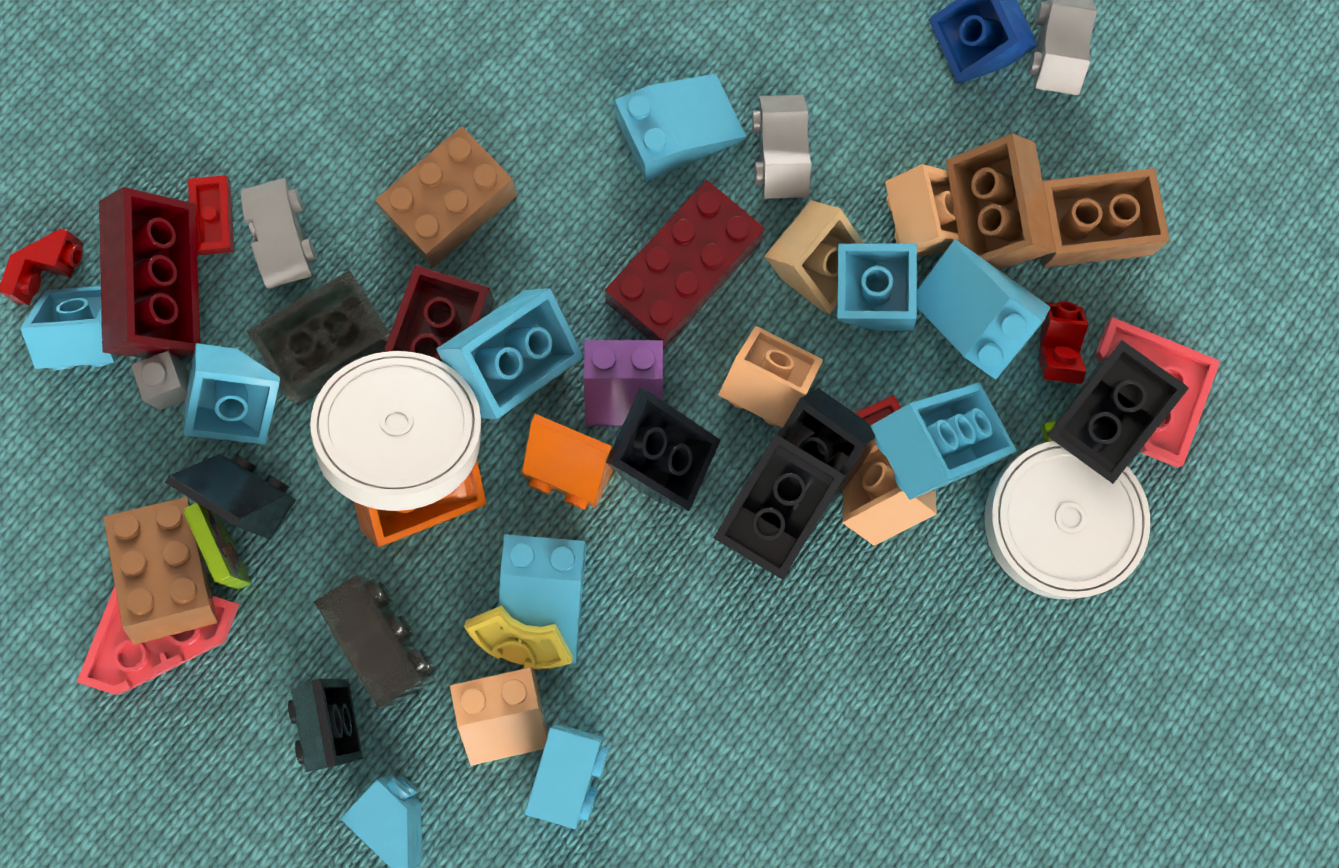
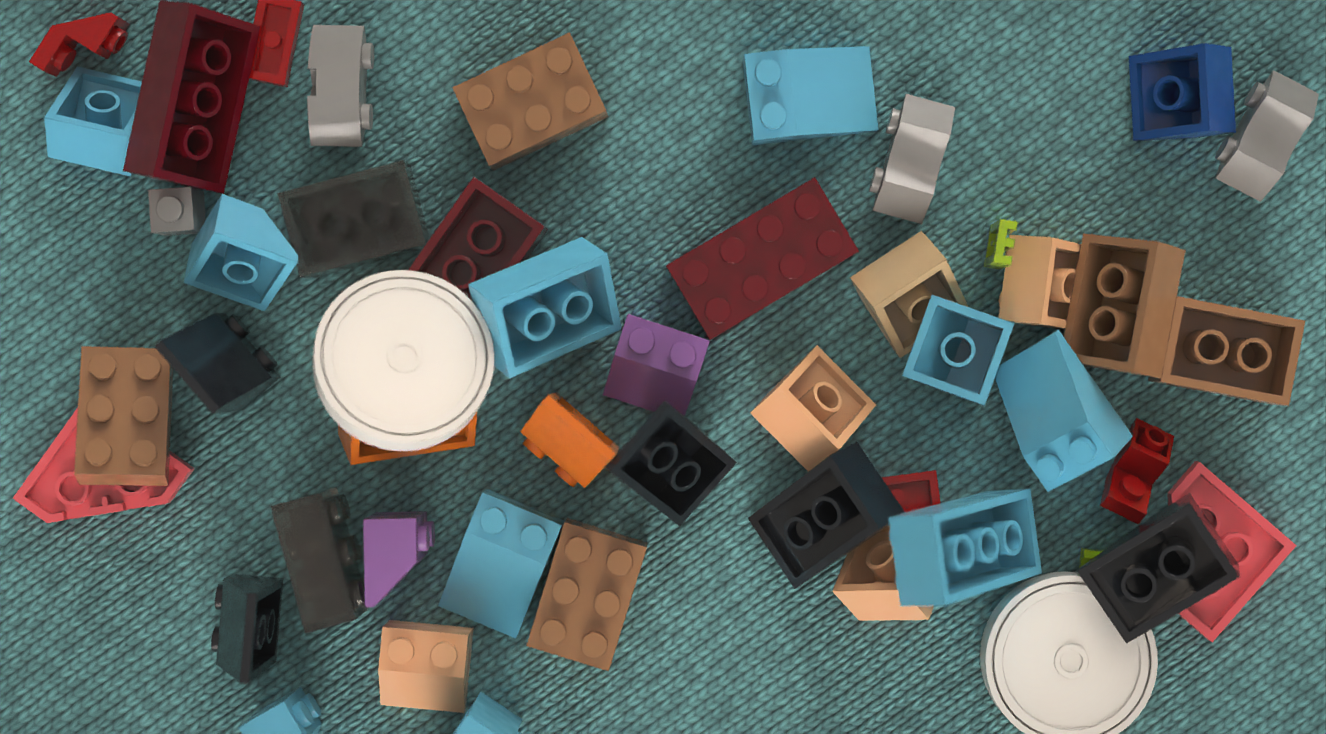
camera: 20 degrees right, 10 degrees up
(216, 547) = (187, 416): lime tile -> none
(439, 613) = (392, 549): none -> medium lavender slope
(519, 643) = (456, 595): light yellow tile -> none
(626, 598) = (587, 594): none -> medium nougat brick
(779, 506) = (770, 556): black slope -> none
(880, 182) = (998, 244): none -> lime tile

